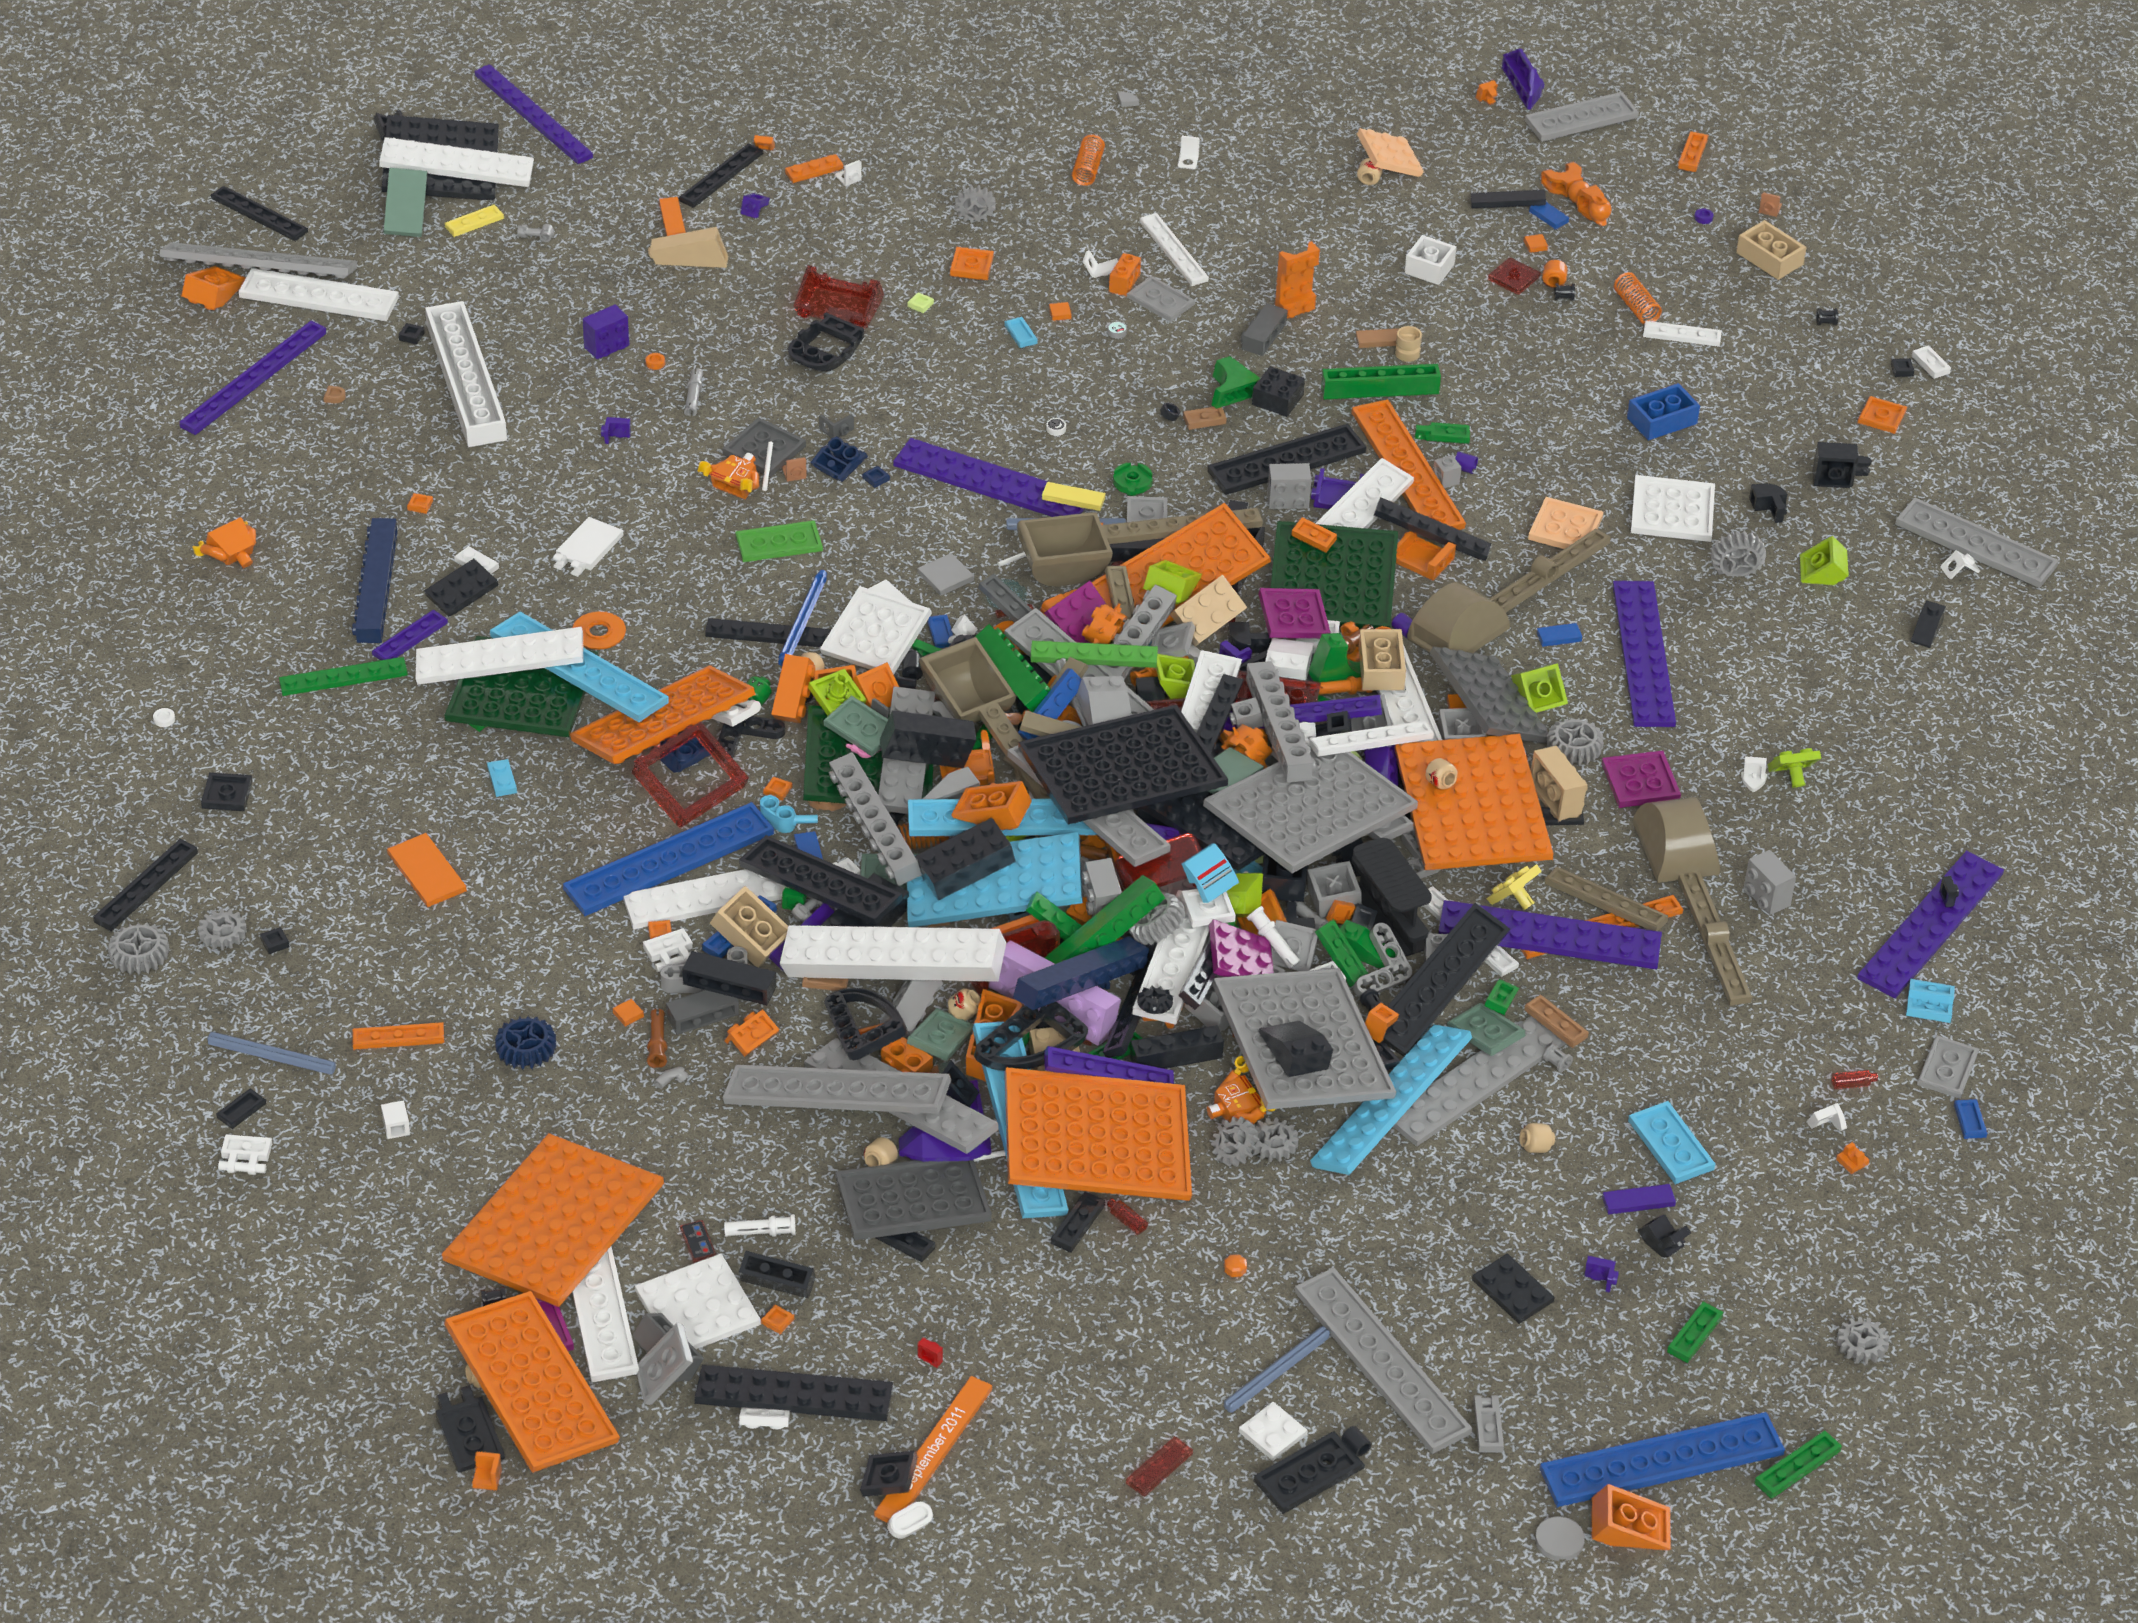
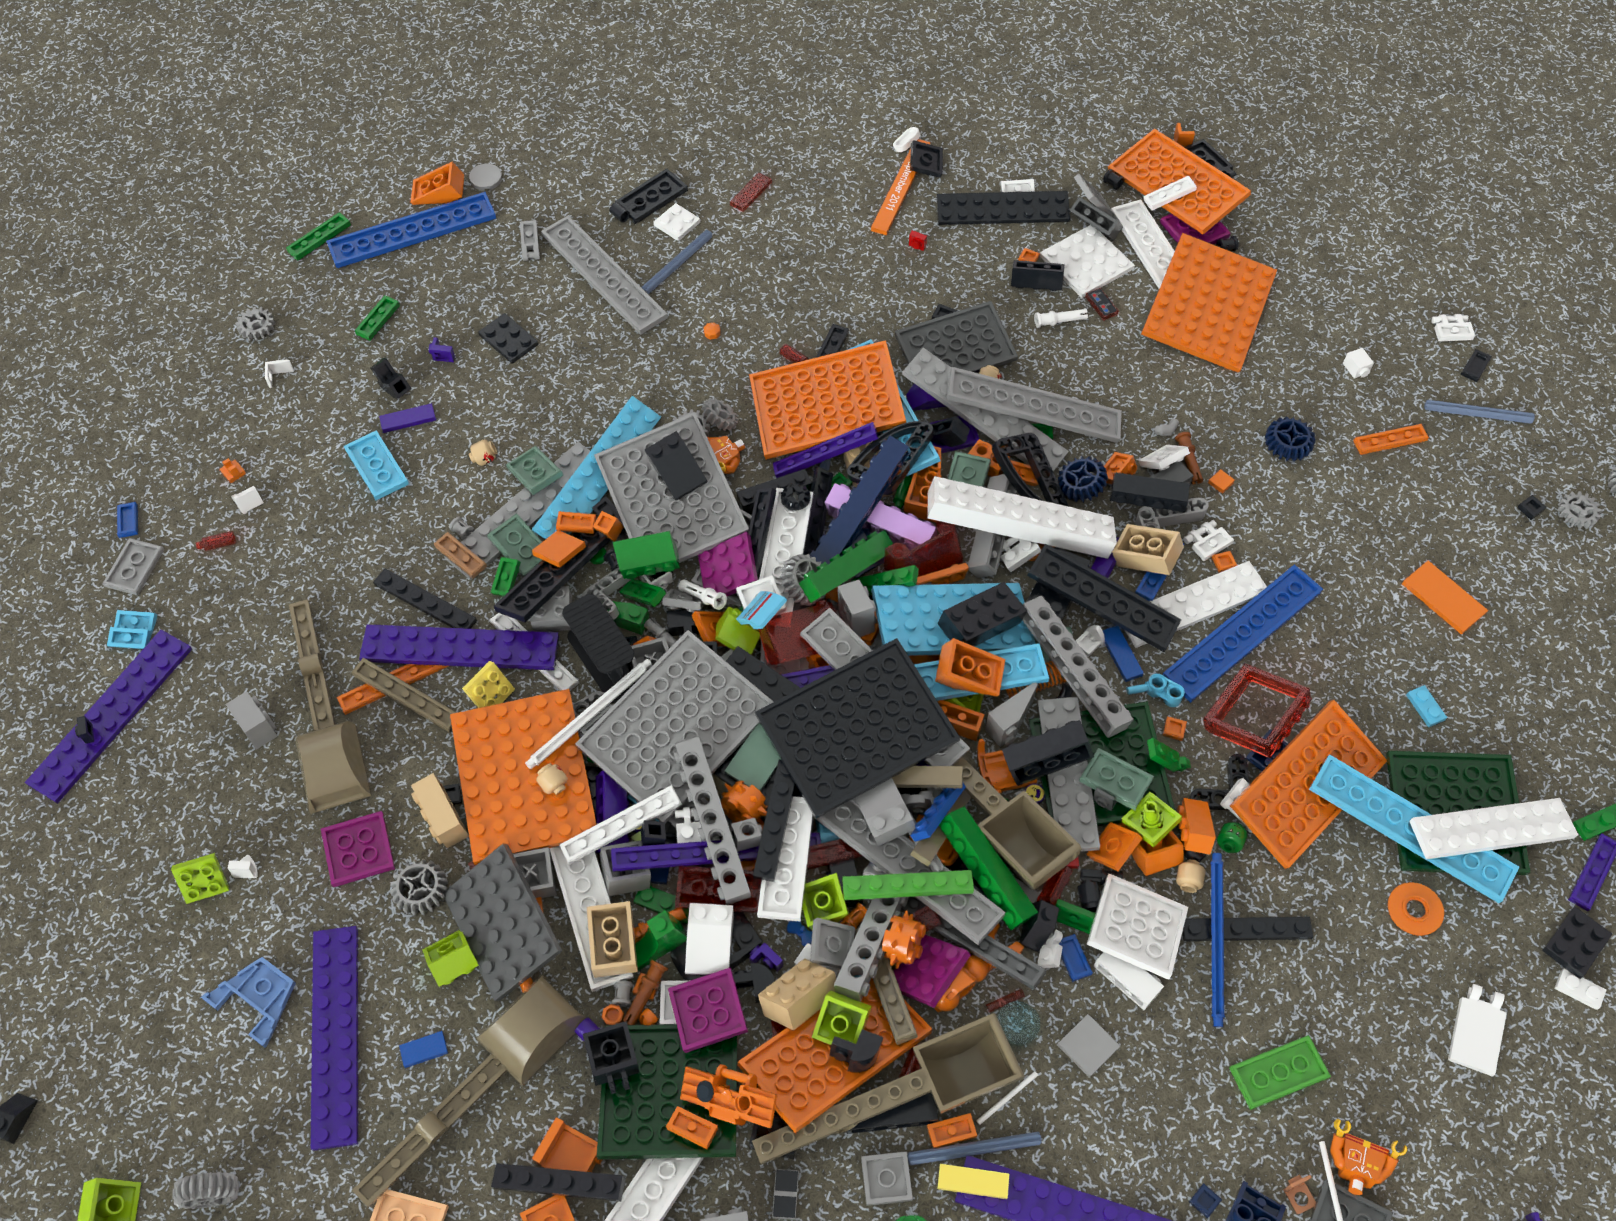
camera: 175 degrees right, 15 degrees up
(553, 1354) = (1170, 193): none -> white tile
(618, 1416) = (1113, 179): none -> black bush
(692, 1030) = (1164, 457): none -> white plate
(799, 1018) = (1085, 483): none -> dark blue gear
(800, 745) = (1167, 756): none -> green hinge
(1161, 549) = (859, 1055): none -> black brick
(1292, 544) = (726, 1104): none -> orange piece
(1334, 966) = (646, 555): none -> green slope
(1384, 587) = (613, 1066): none -> black hinge
(1411, 823) = (588, 714): none -> white piece
(1418, 1029) = (575, 522): none -> orange plate
(1438, 997) = (558, 548): none -> orange tile
(1471, 1107) = (534, 470): none -> sand green tile
(1596, 992) = (424, 600): none -> black plate
(1721, 689) = (262, 988): none -> medium blue wing
(1819, 1276) = (275, 367): none -> white bracket

